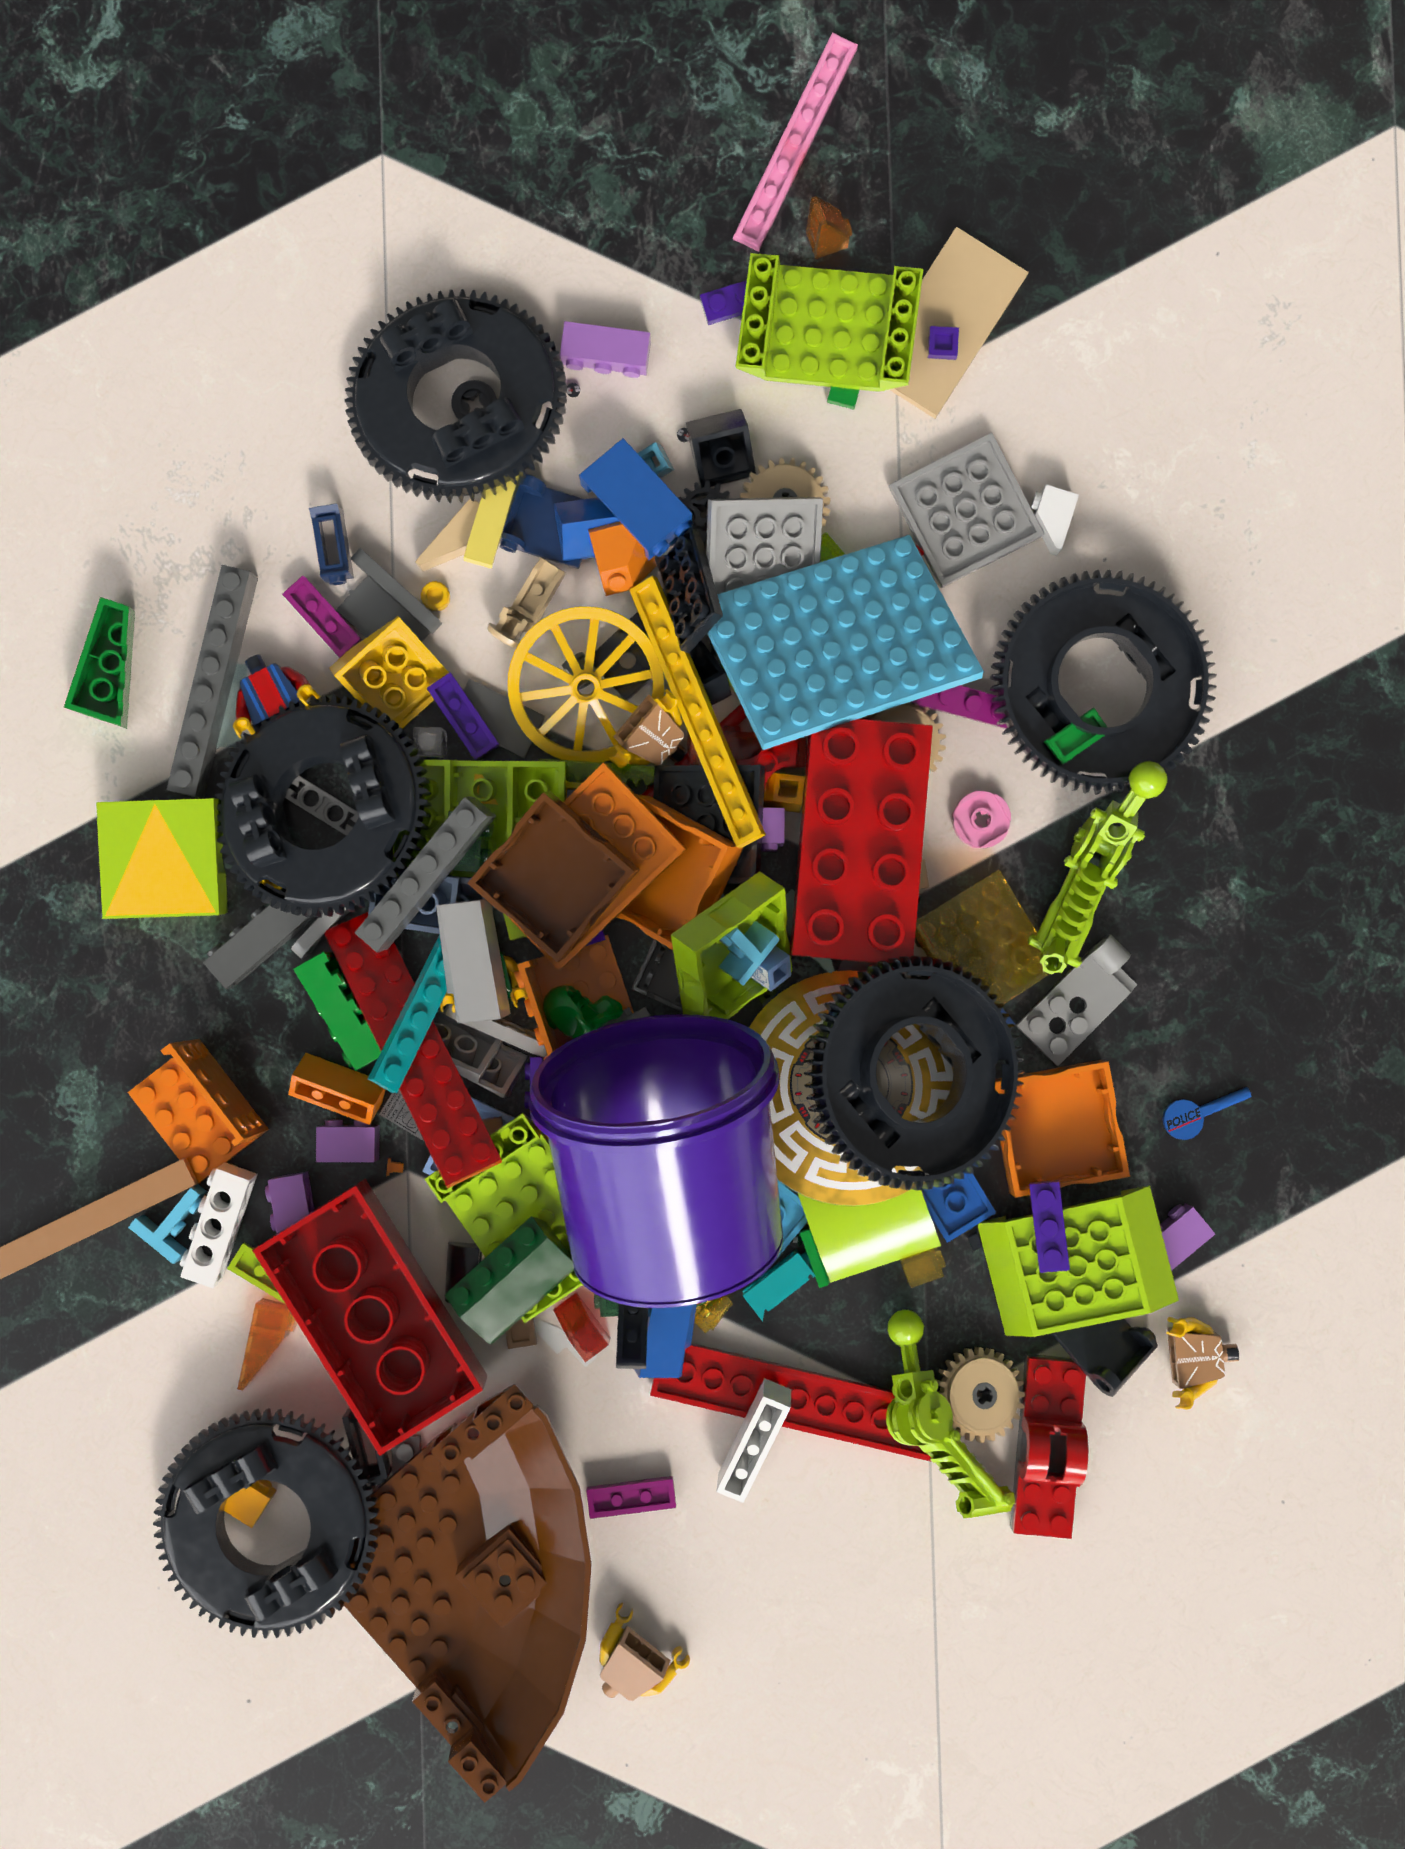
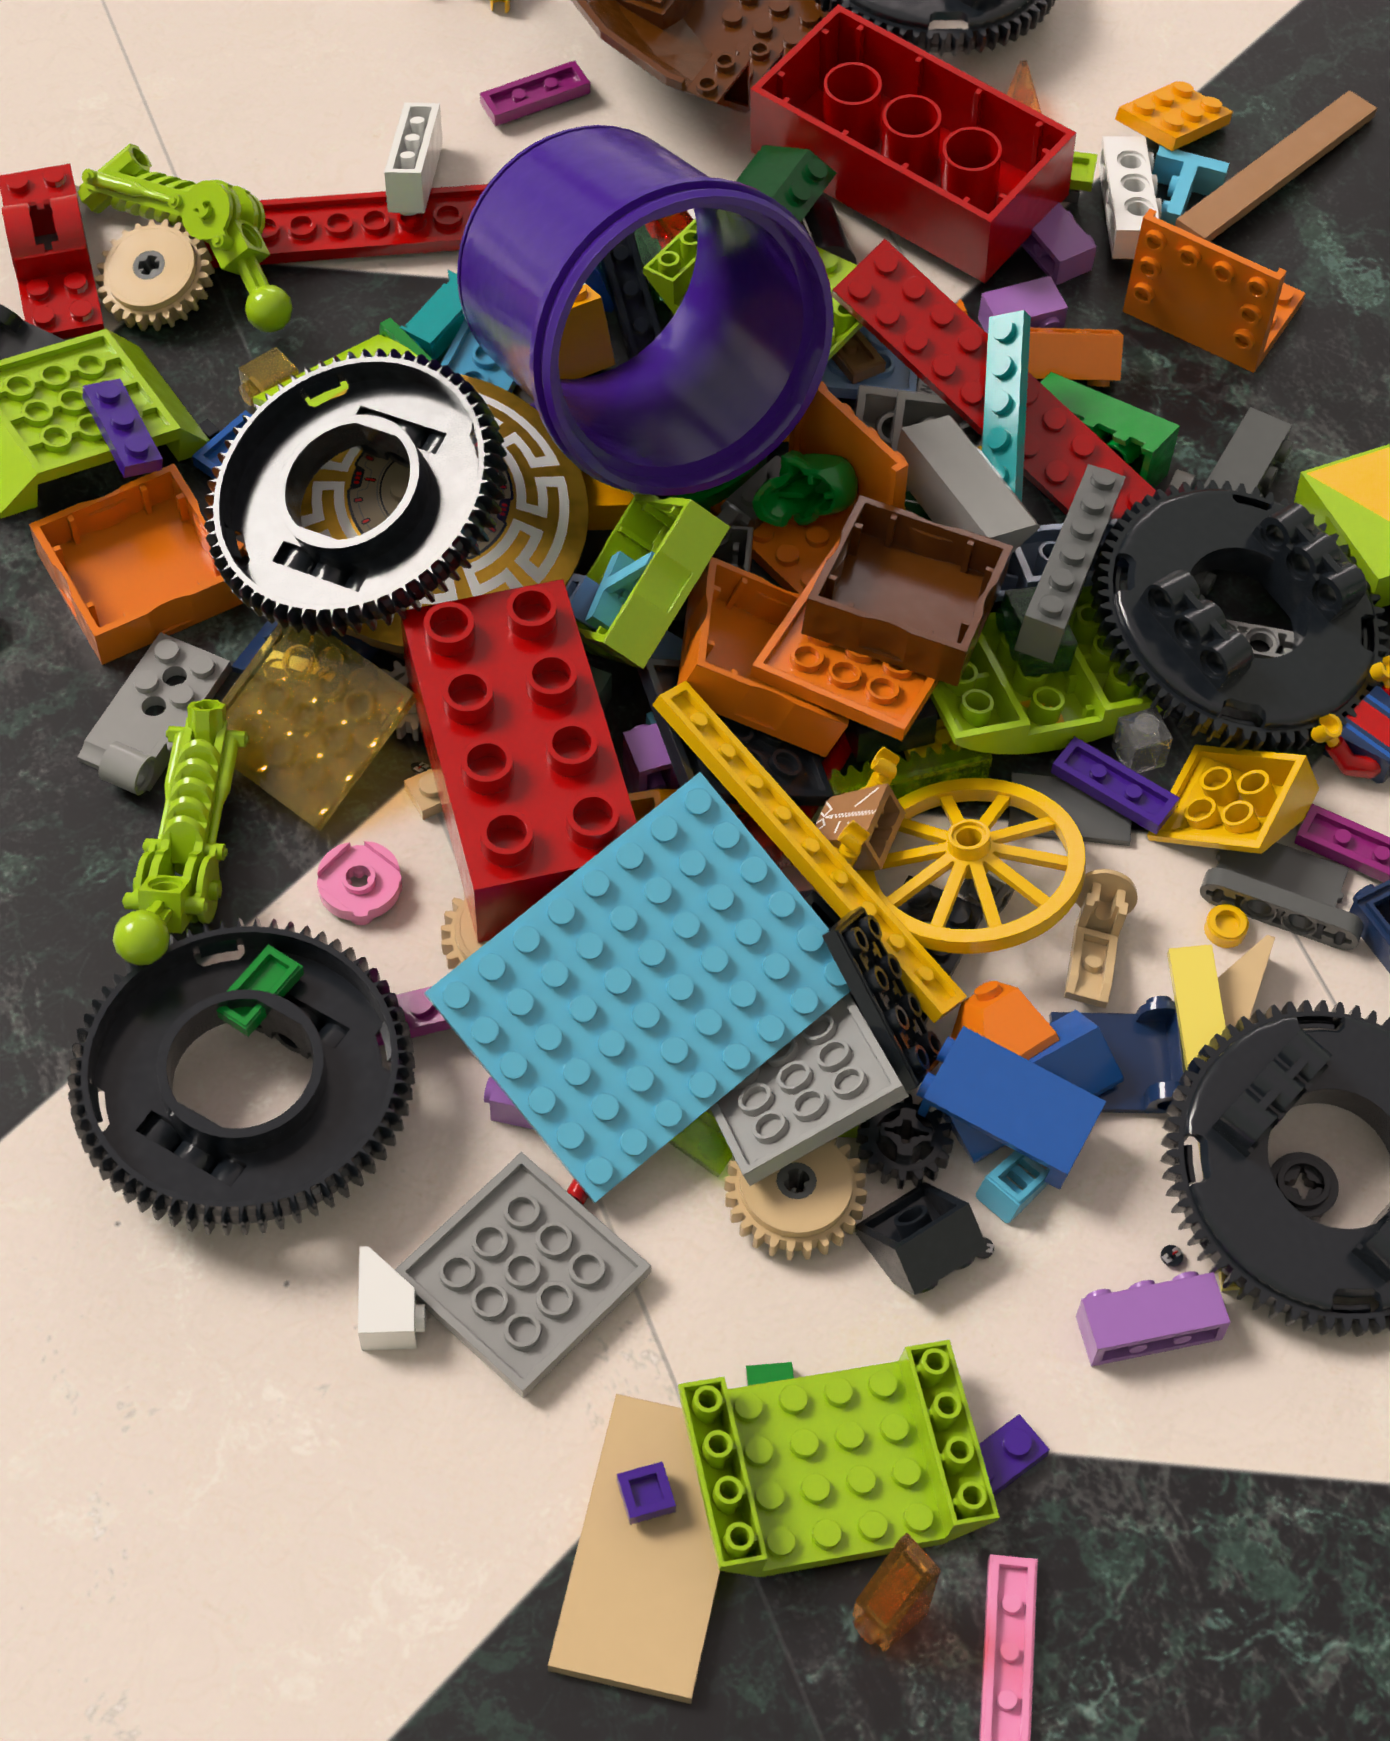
camera: 160 degrees right, 30 degrees down
(145, 1296) = (1174, 115): none -> light orange plate

